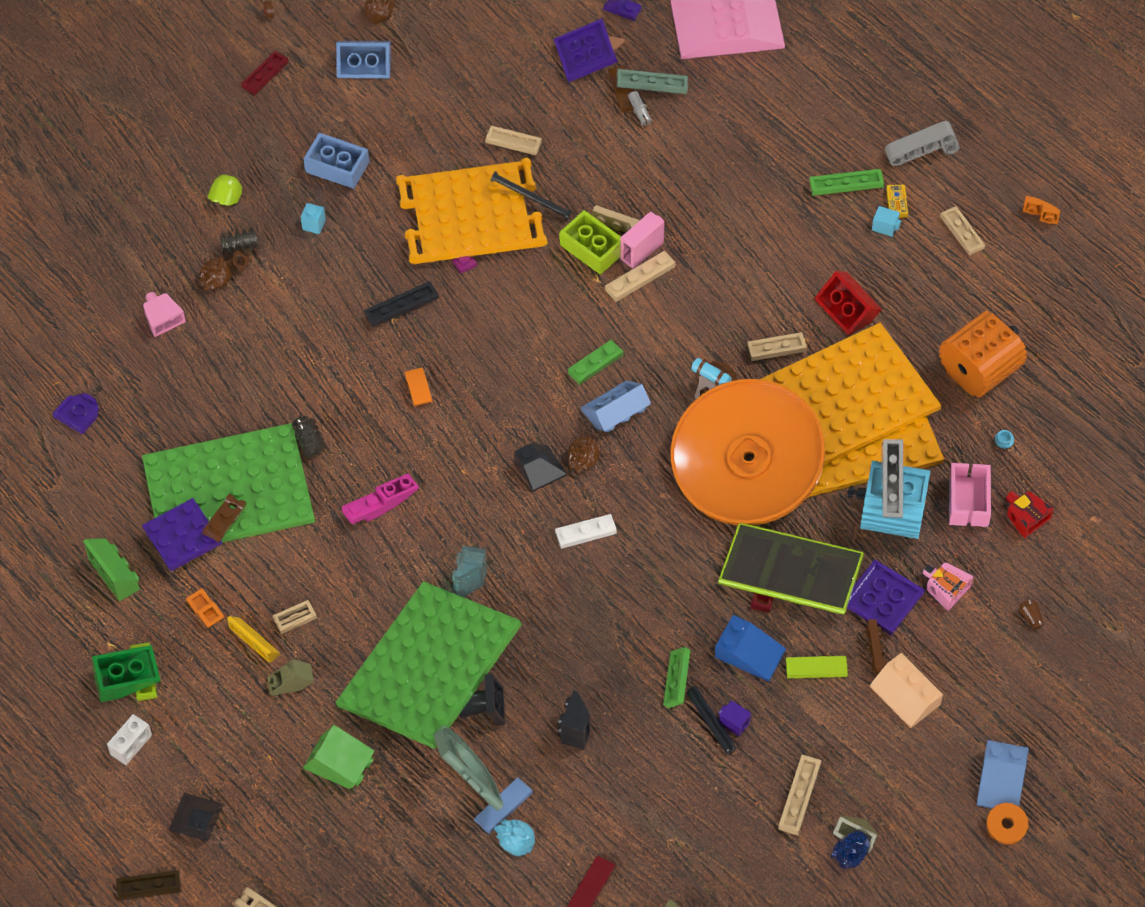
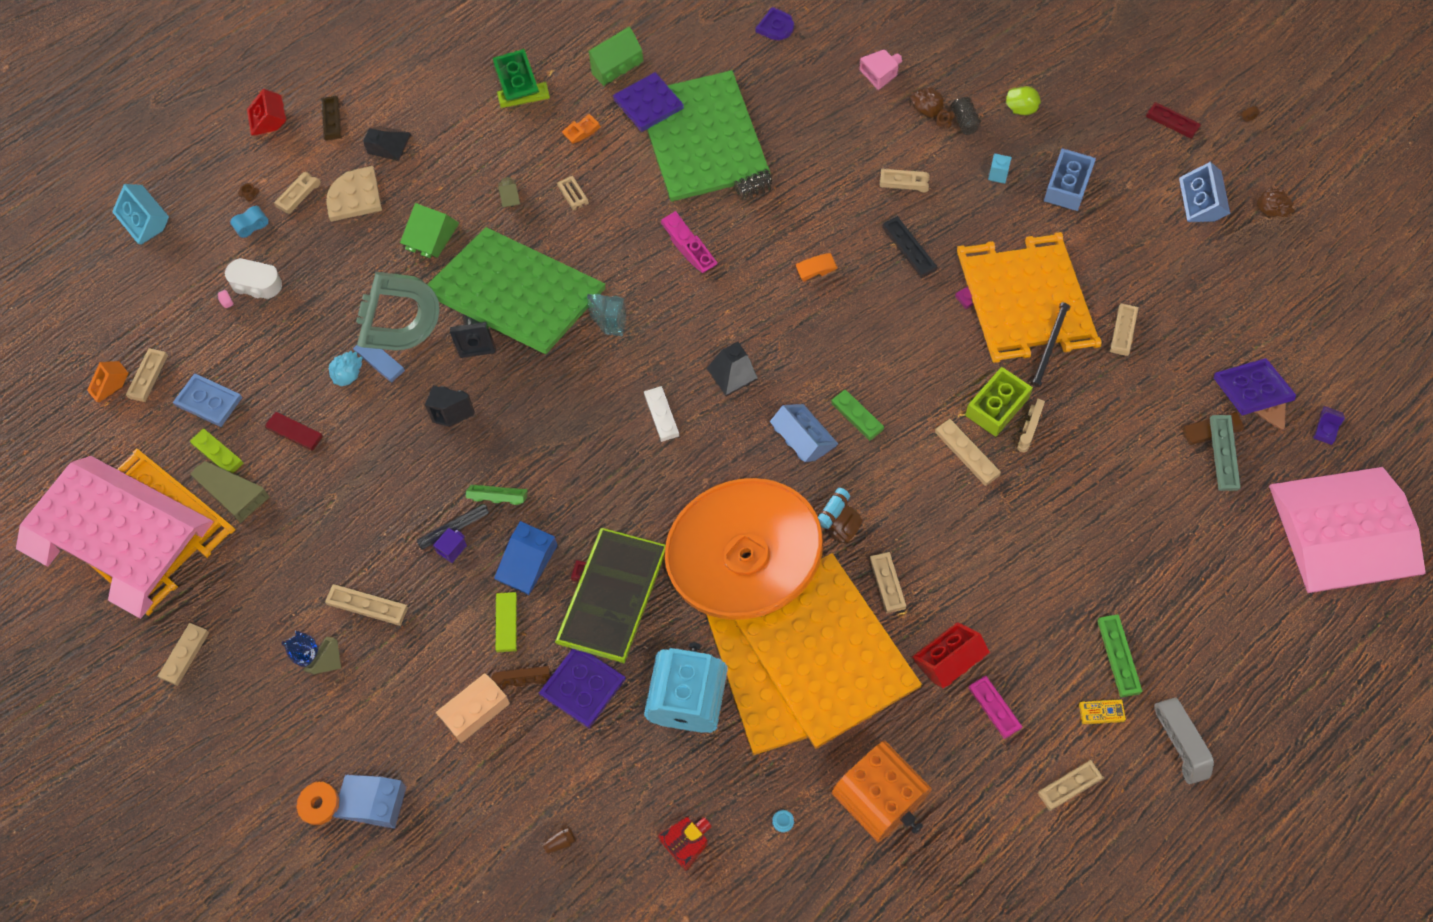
camera: 90 degrees right, 5 degrees up
(129, 739) = (456, 88): white brick -> none
(224, 518) = (661, 126): reddish brown plate -> none
(252, 638) = (550, 163): yellow slope -> none
(270, 849) = (354, 194): none -> tan plate
(315, 303) = (904, 179): none -> tan plate
(583, 453) = (745, 406): reddish brown hair -> none
(639, 108) = (1185, 442): light grey axle -> none
(642, 240) = (1005, 446): bright pink brick -> none
(886, 221) = (1068, 697): medium azure brick -> none
(892, 478) = (689, 671): light grey slope -> none
(894, 277) = (995, 707): none -> dark pink tile
(947, 584) = (596, 750): torso -> none
(969, 495) = (702, 775): bright pink piece -> none
(1048, 212) = (1106, 883): orange slope -> none

